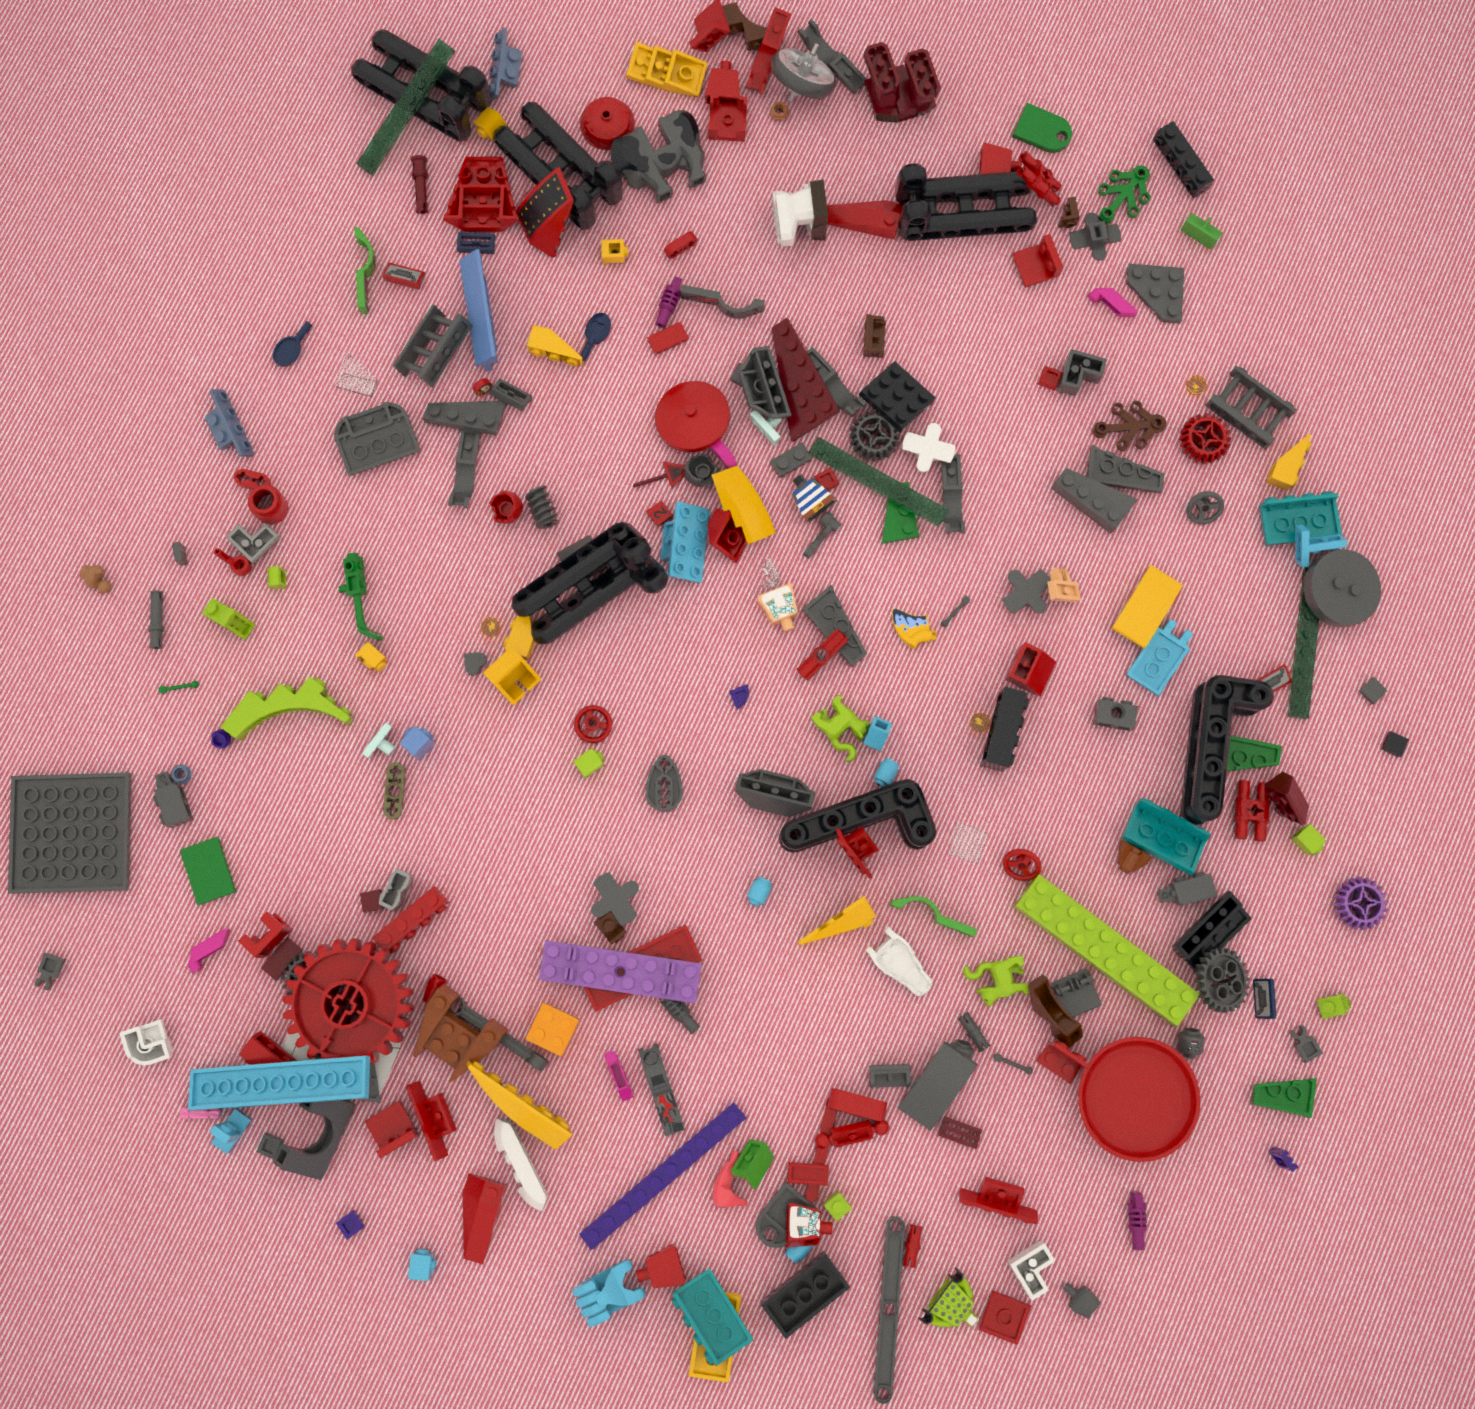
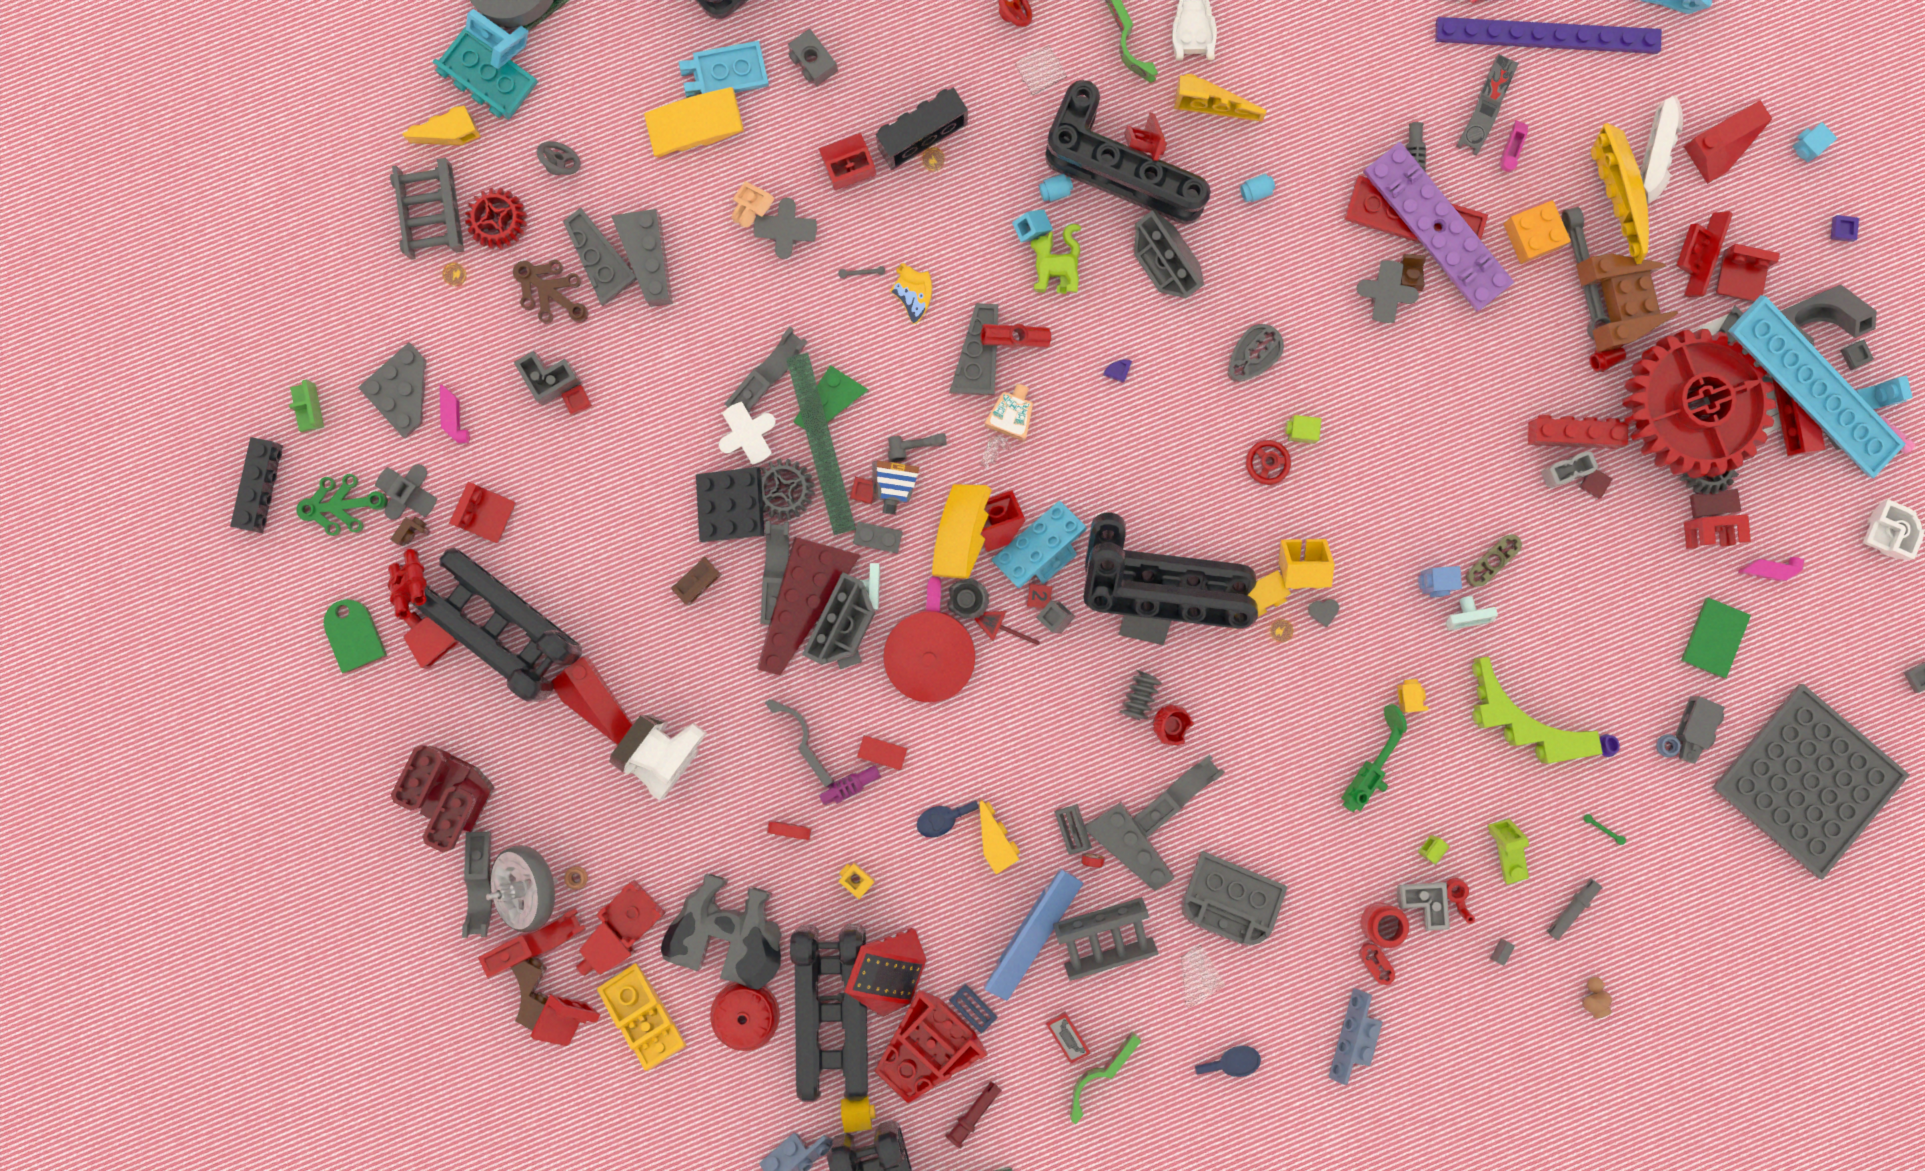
camera: 135 degrees left, 5 degrees up
(637, 506) = (1055, 617): none -> dark grey brick

